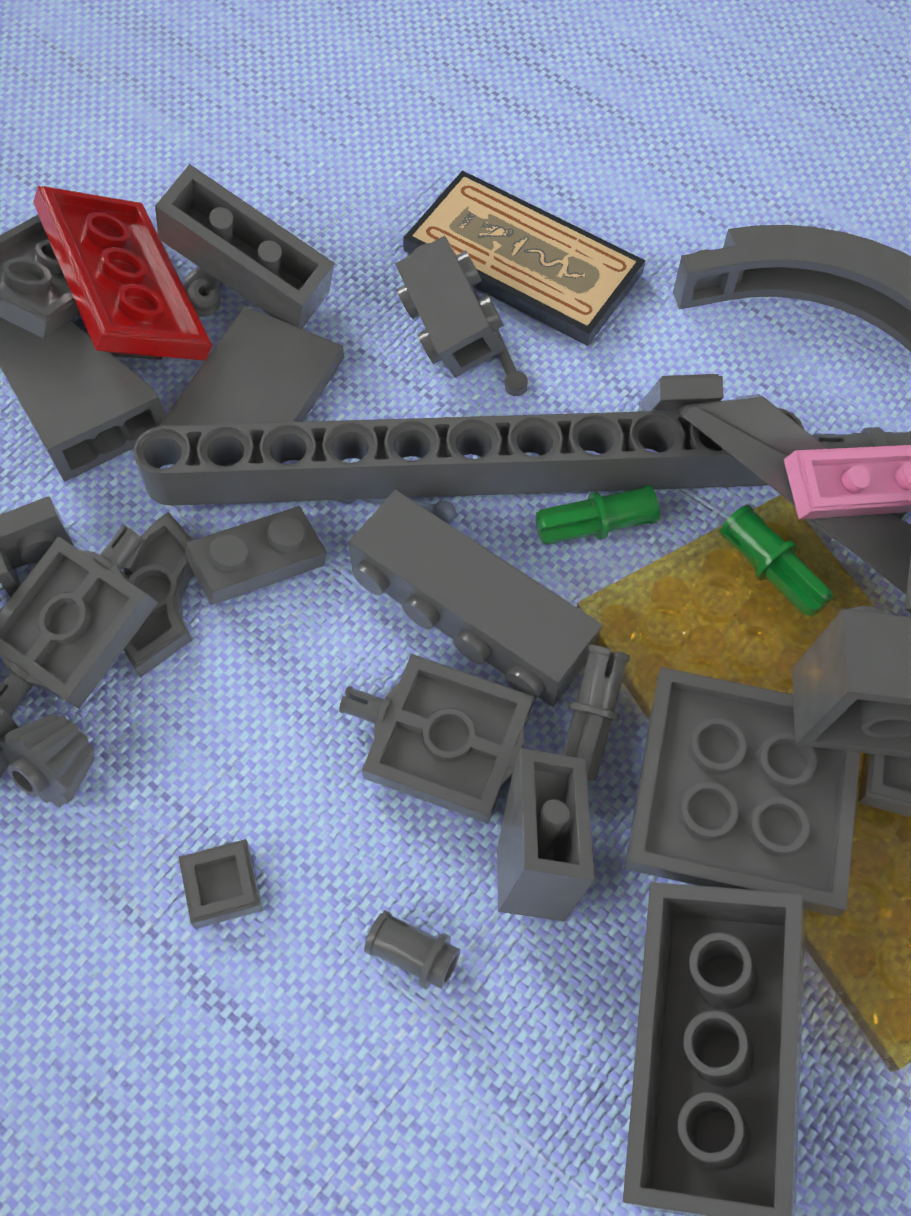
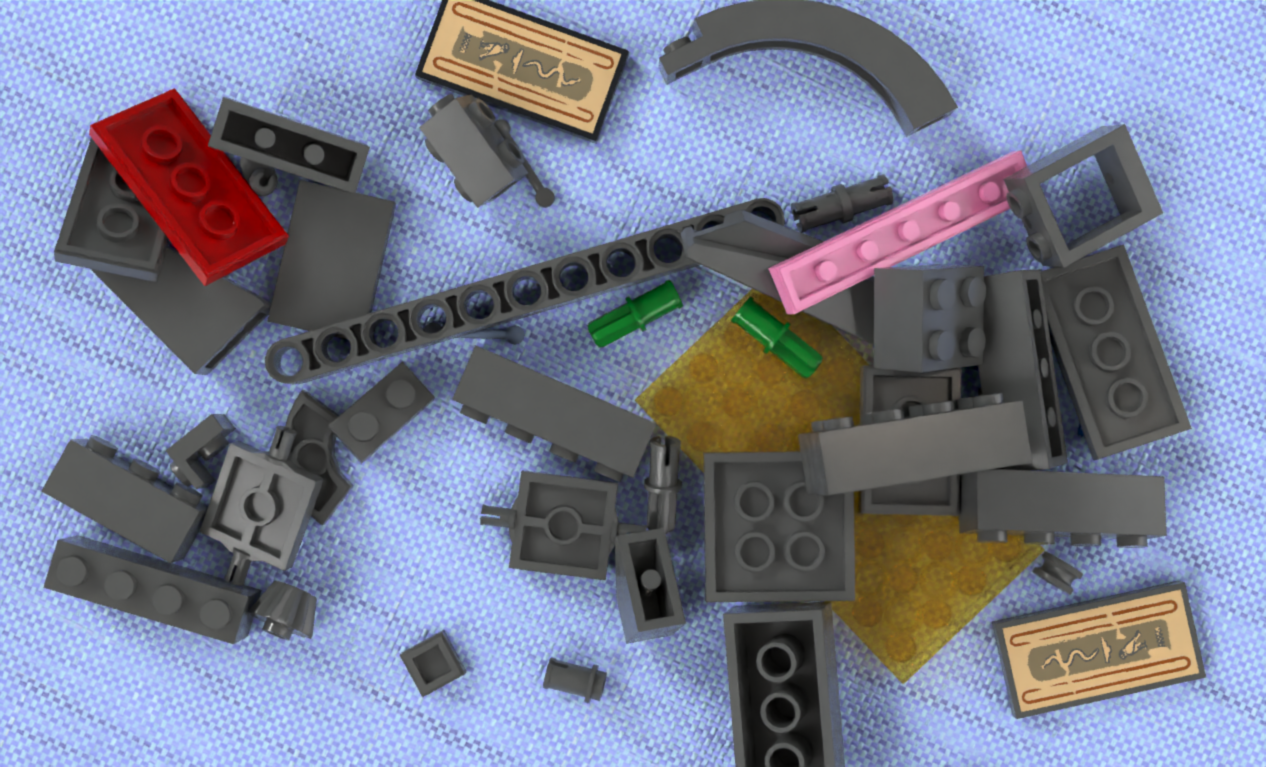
camera: 10 degrees left, 25 degrees up
(675, 390) = (681, 209): dark grey tile -> none

